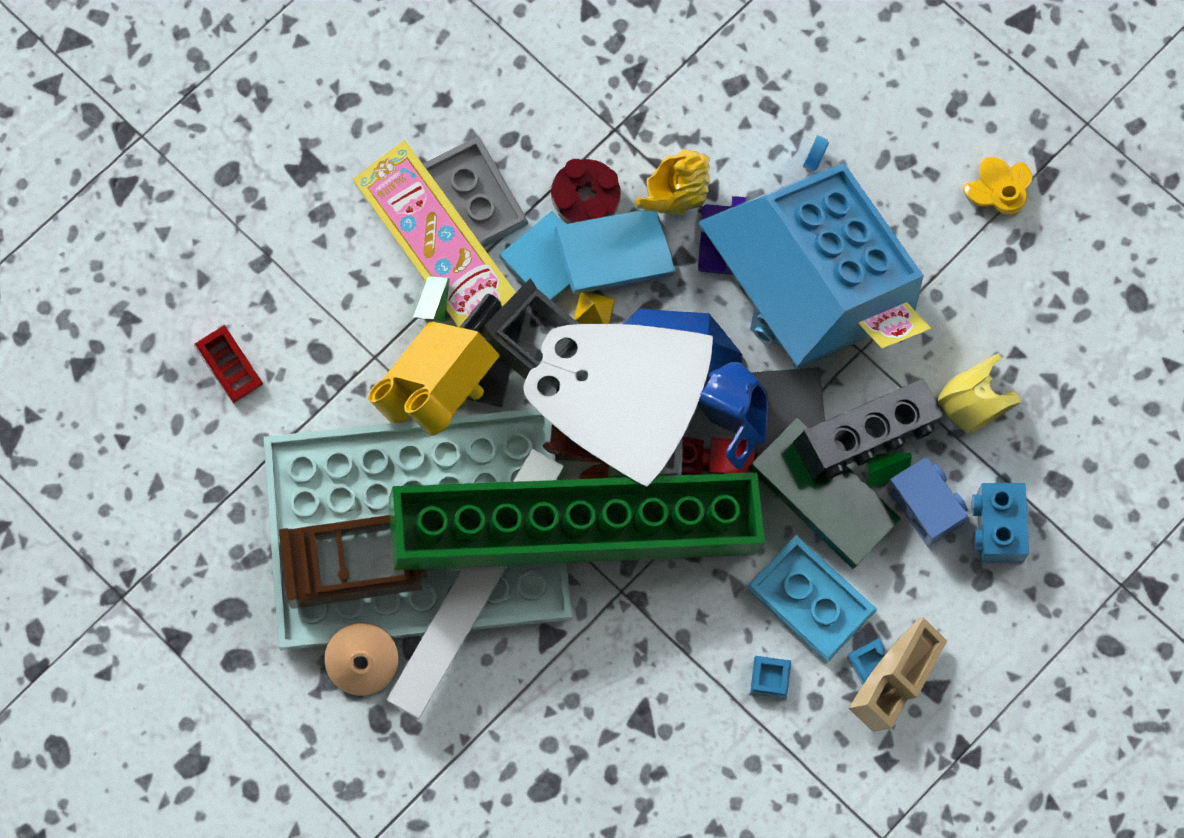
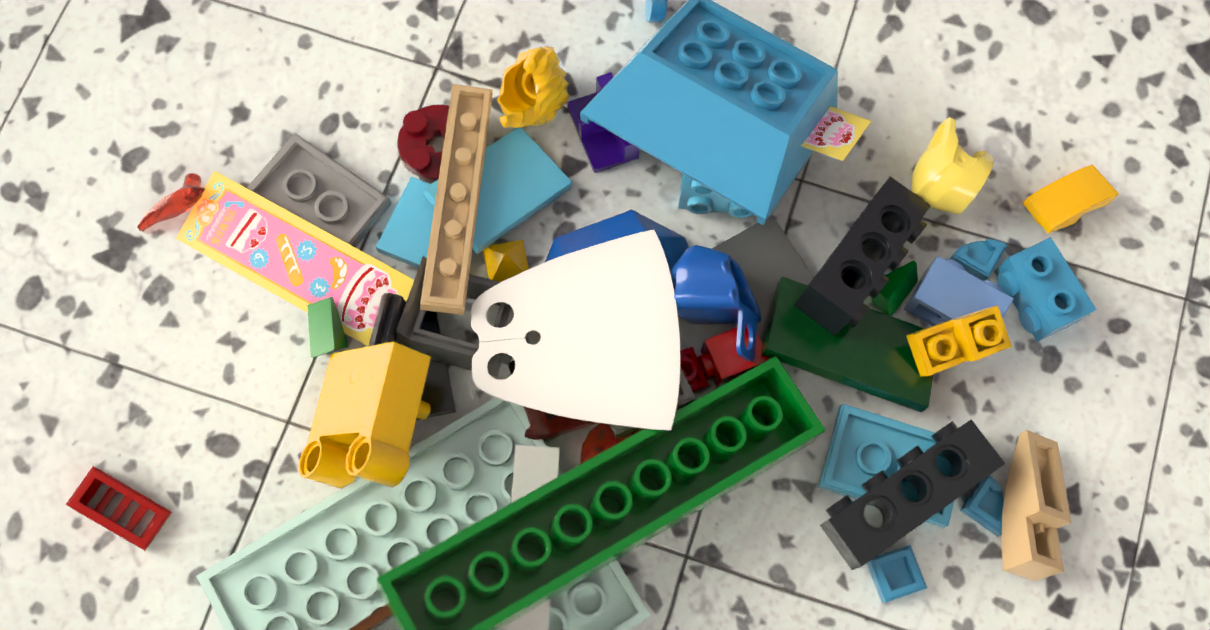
camera: 30 degrees left, 0 degrees up
(364, 152) = (175, 203): none -> clear red bar
(578, 244) = (457, 201): none -> tan tile
(754, 639) = (971, 462): none -> black brick
(905, 527) = (959, 341): none -> yellow slope
(968, 475) = (980, 257): none -> dark azure tile
(1067, 460) = (1069, 198): none -> yellow slope

